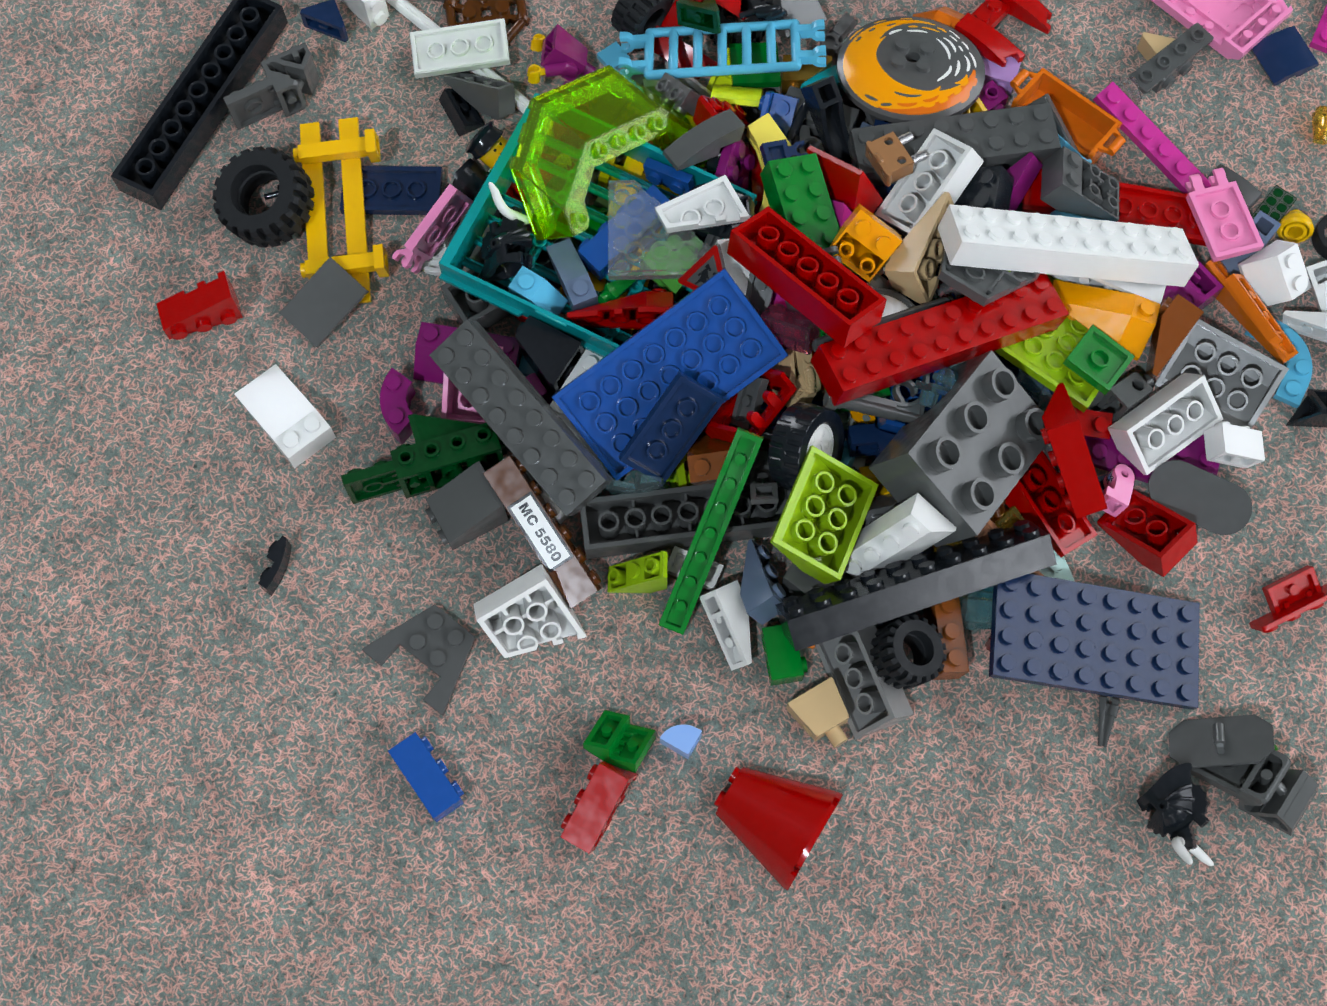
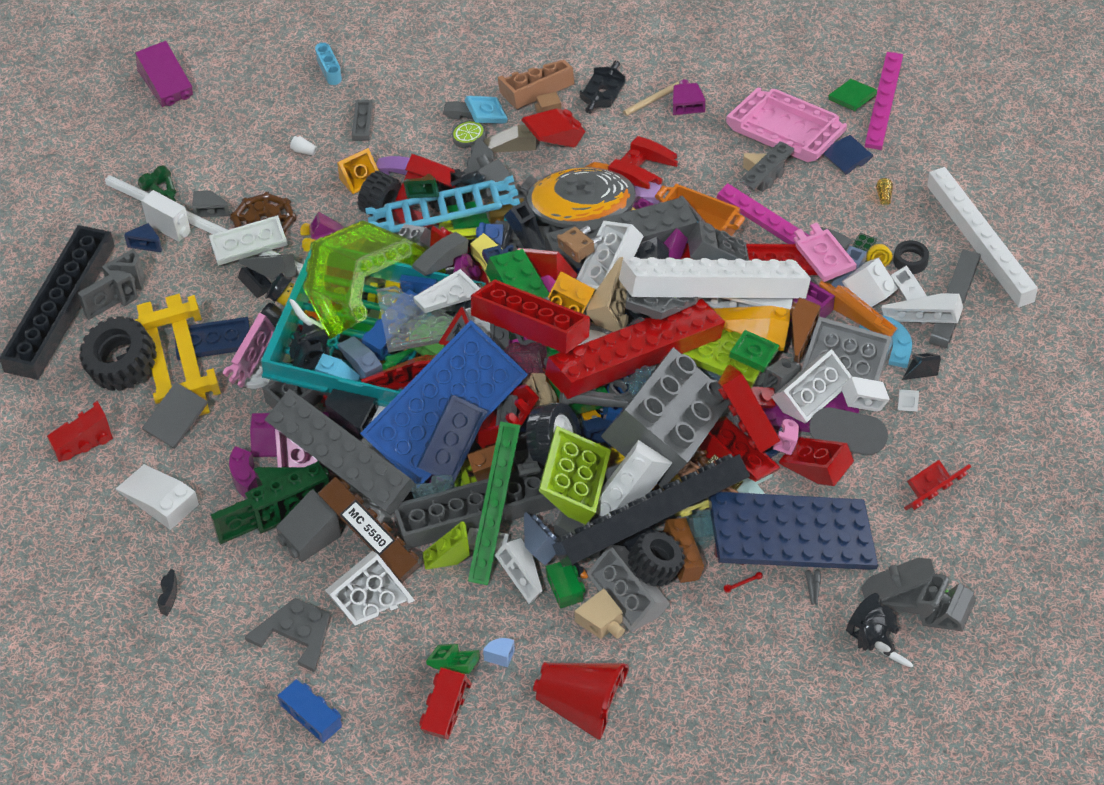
camera: 10 degrees left, 20 degrees down
(993, 699) = (728, 588): none -> red hinge
(1289, 463) = (908, 400): none -> white tile

